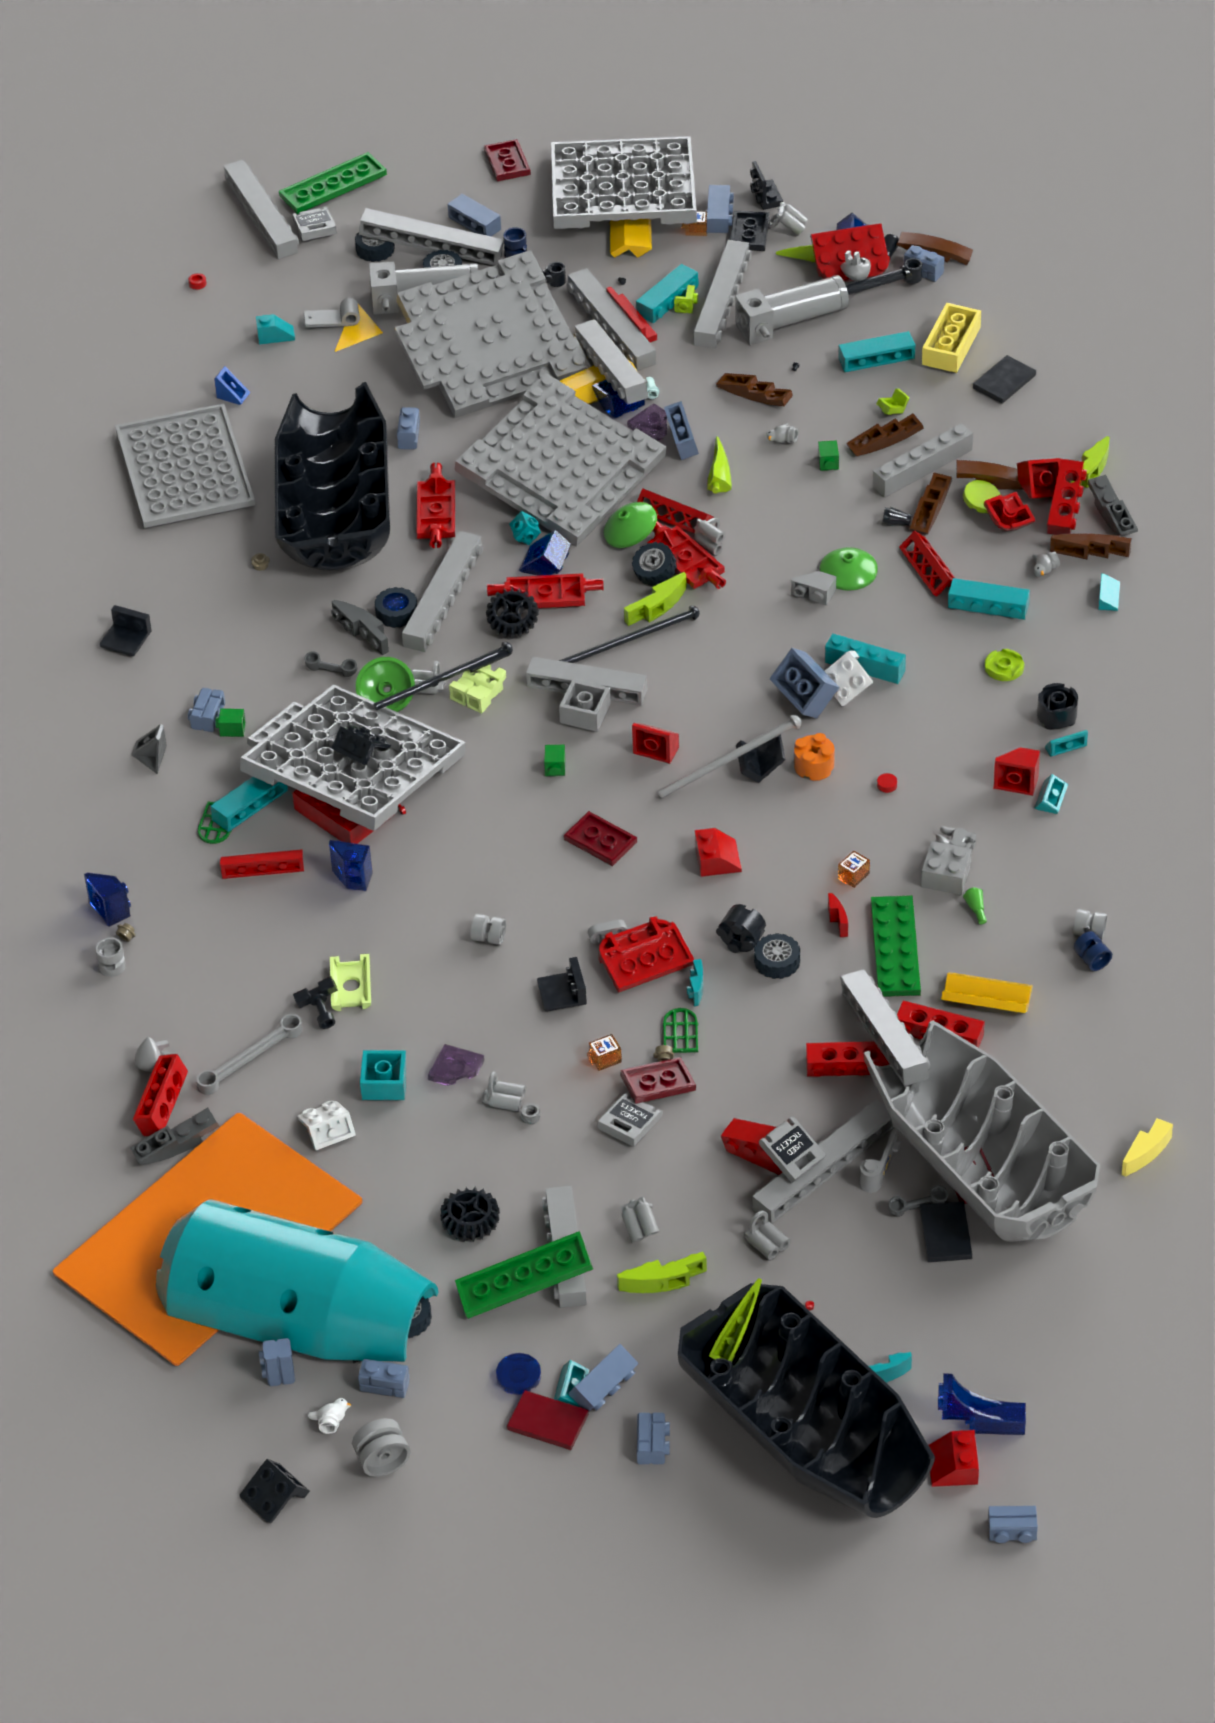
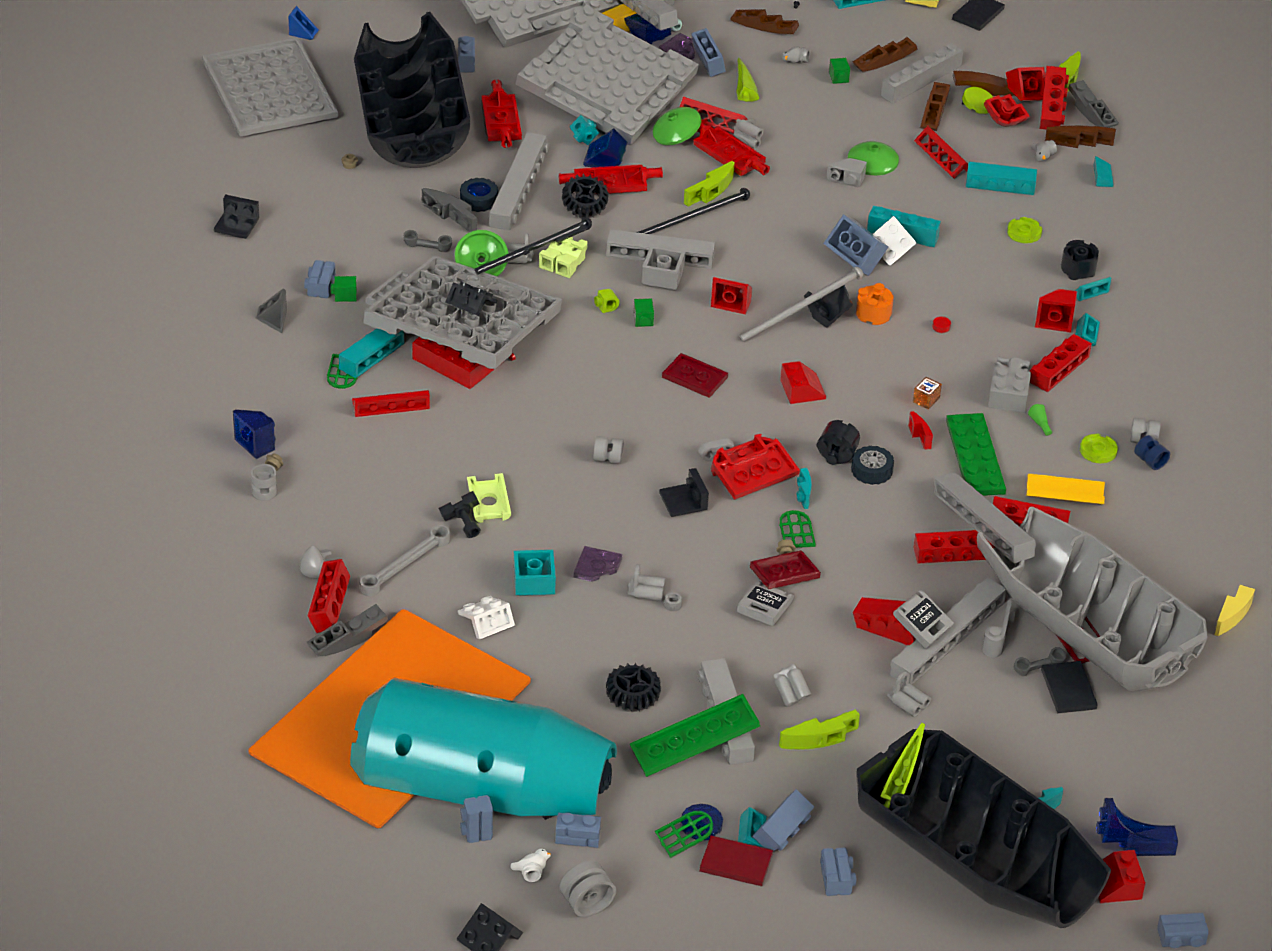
camera: 10 degrees left, 5 degrees down
(351, 864) = (474, 399): clear blue slope -> none
(488, 1384) = (677, 831): none -> green window
(516, 744) = (606, 300): none -> lime plate
(604, 1052) = (732, 548): clear orange brick -> none
(651, 572) = (703, 155): black wheel -> none
(894, 404) = (889, 31): lime bracket -> none
(896, 517) = (905, 116): black cone -> none
(1011, 835) = (1060, 362): none -> red brick
(1029, 943) = (1101, 453): none -> lime tile

